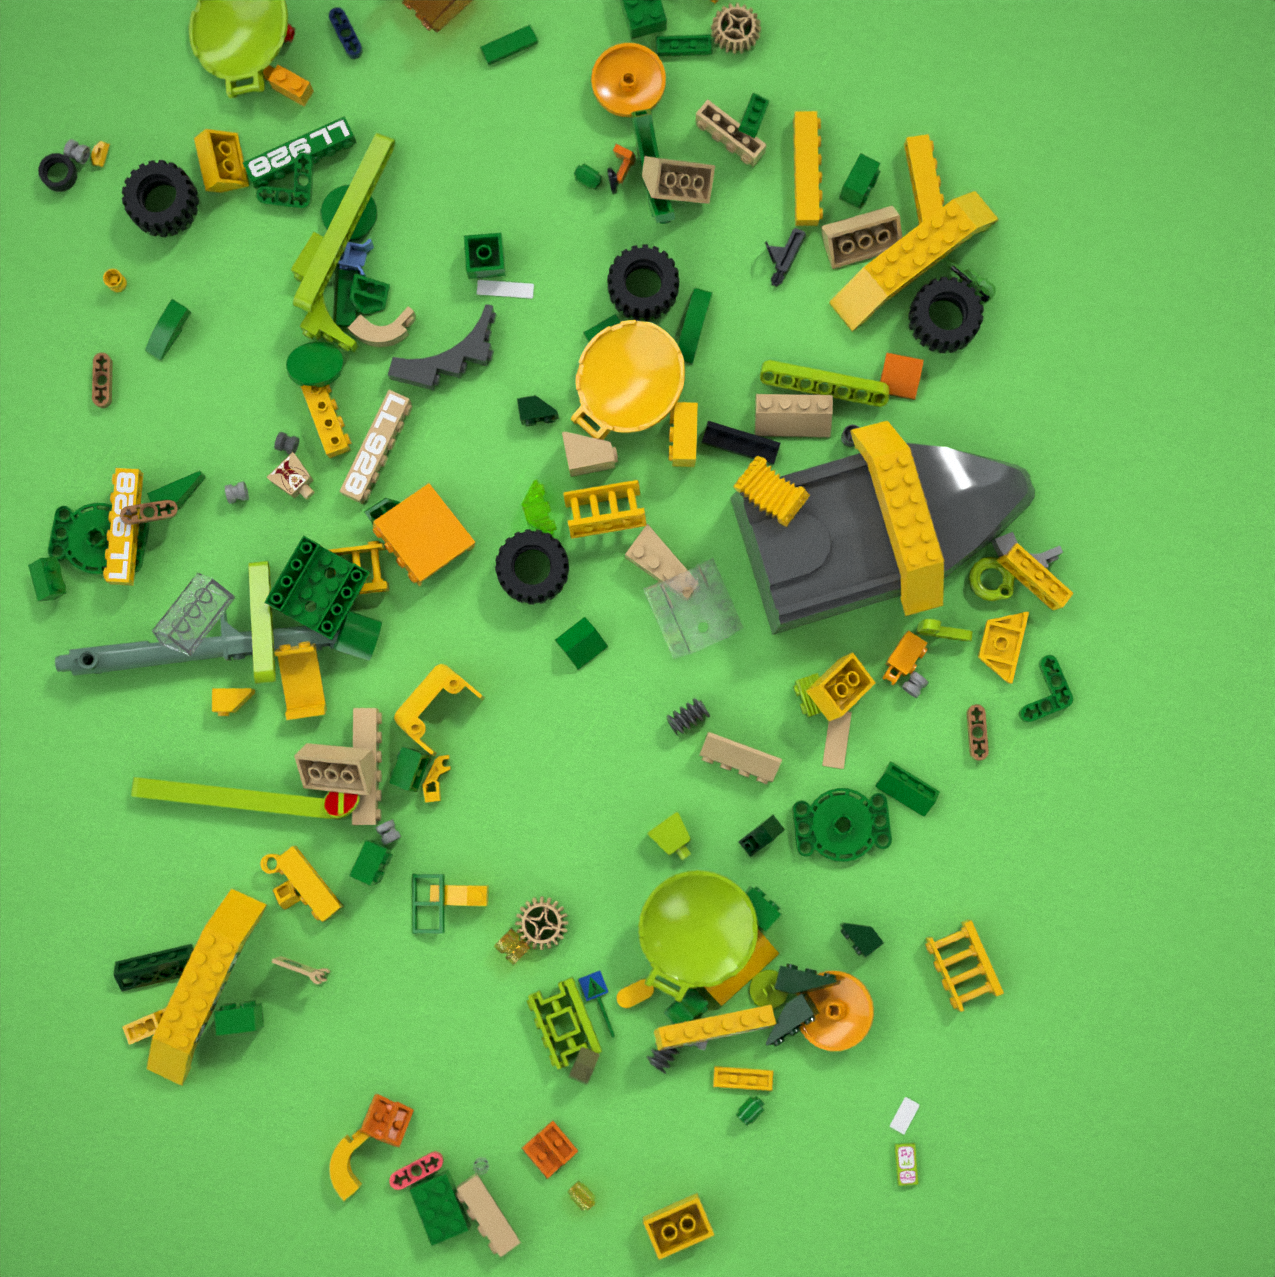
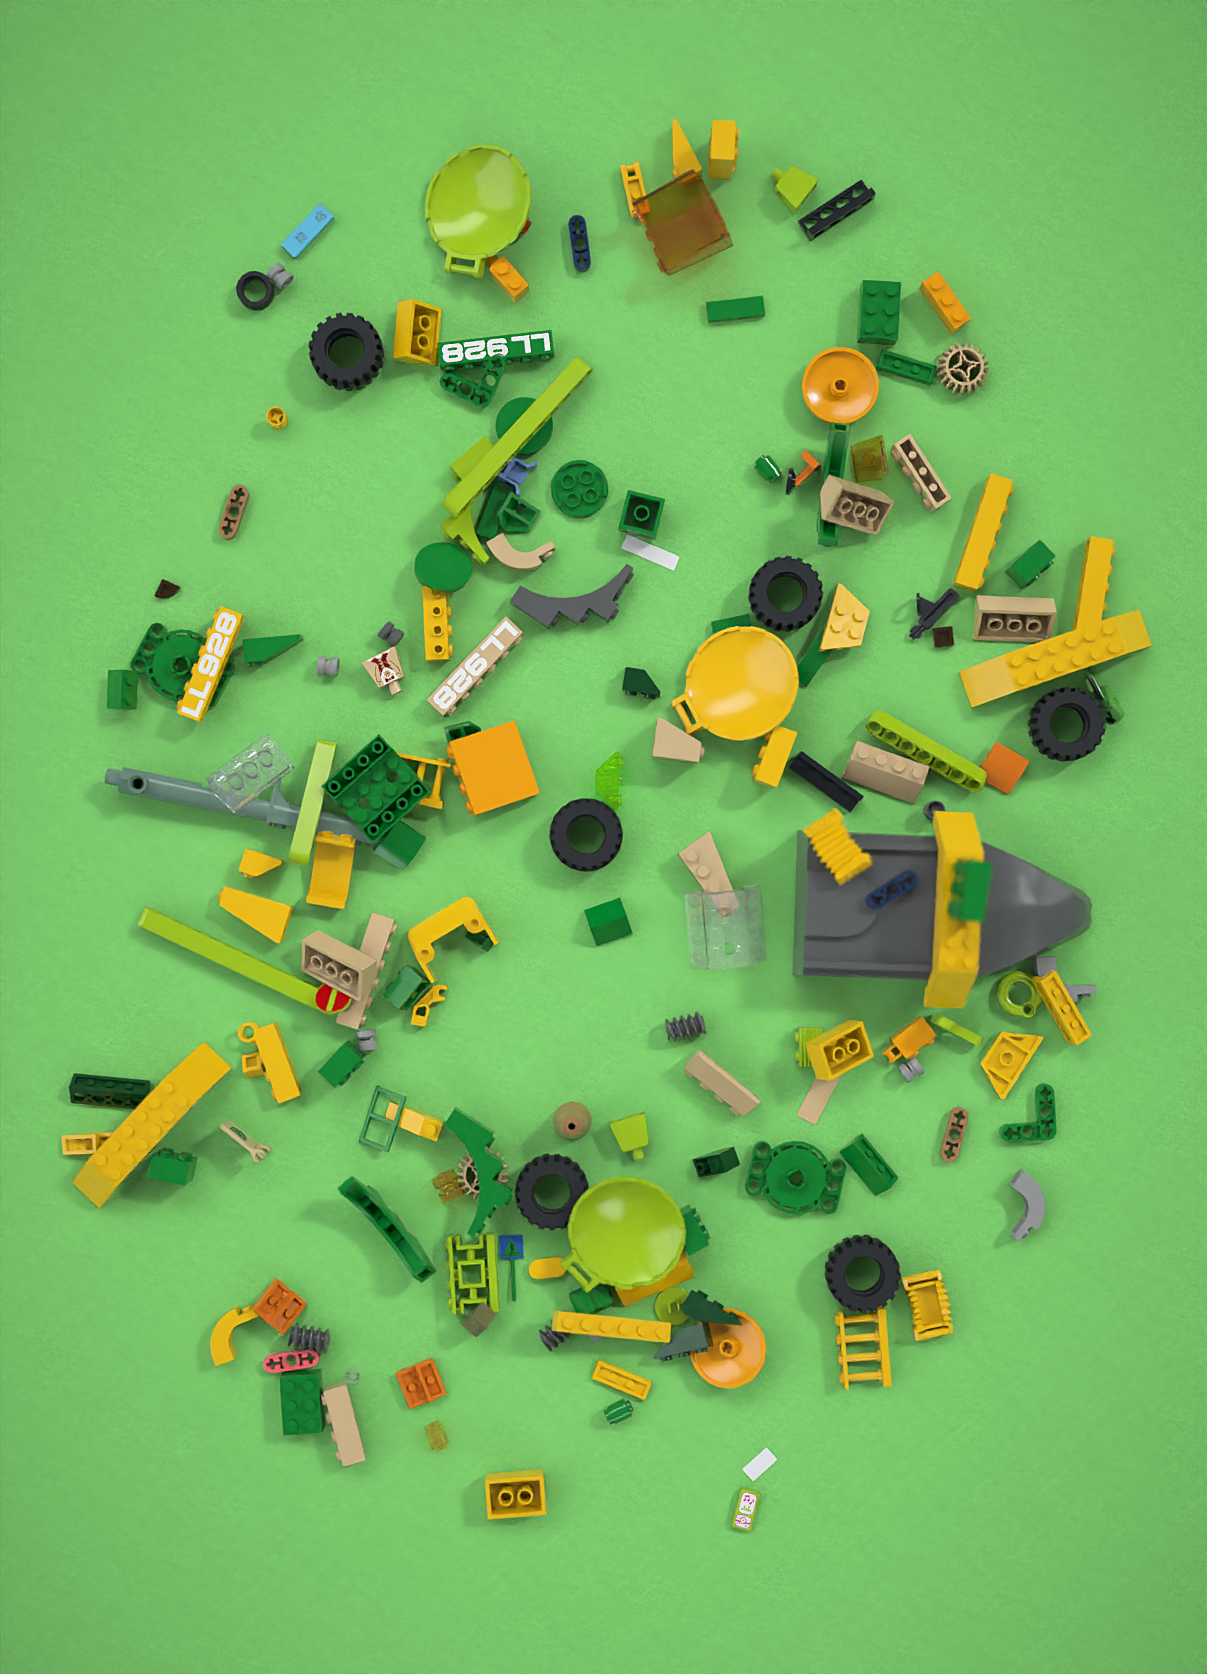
camera: 20 degrees right, 5 degrees up
(61, 473) = (166, 589): none -> dark brown tile
(89, 103) = (307, 231): none -> medium azure tile
(99, 153) = (301, 284): yellow piece -> none
(135, 520) = (253, 657): medium nougat beam -> none
(167, 329) = (312, 484): green slope -> none
(251, 746) = (259, 912): none -> yellow slope
(419, 253) = (579, 489): none -> green tile
(426, 1142) = (310, 1338): none -> dark grey piece
(464, 701) = (480, 940): none -> green piece
(467, 1003) = (390, 1226): none -> green arch
(555, 935) = (492, 1191): none -> green arch
(587, 911) = (532, 1173): none -> black tyre
(607, 522) = (670, 818): yellow fence -> none
(620, 839) = (572, 1113): none -> medium nougat cone
(679, 137) = (870, 459): none -> clear yellow slope
(707, 290) = (844, 622): none -> yellow wing
(753, 115) = (949, 463): green tile -> none
(803, 275) = (943, 636): none -> dark brown tile
(831, 528) = (901, 877): none -> dark blue beam
(863, 937) = (779, 1289): dark green slope -> none
(908, 483) = (969, 890): none -> green brick
(964, 893) = (877, 1294): none -> black tyre
(1011, 903) = (928, 1305): none -> yellow piece
(1076, 771) = (1034, 1204): none -> light grey arch

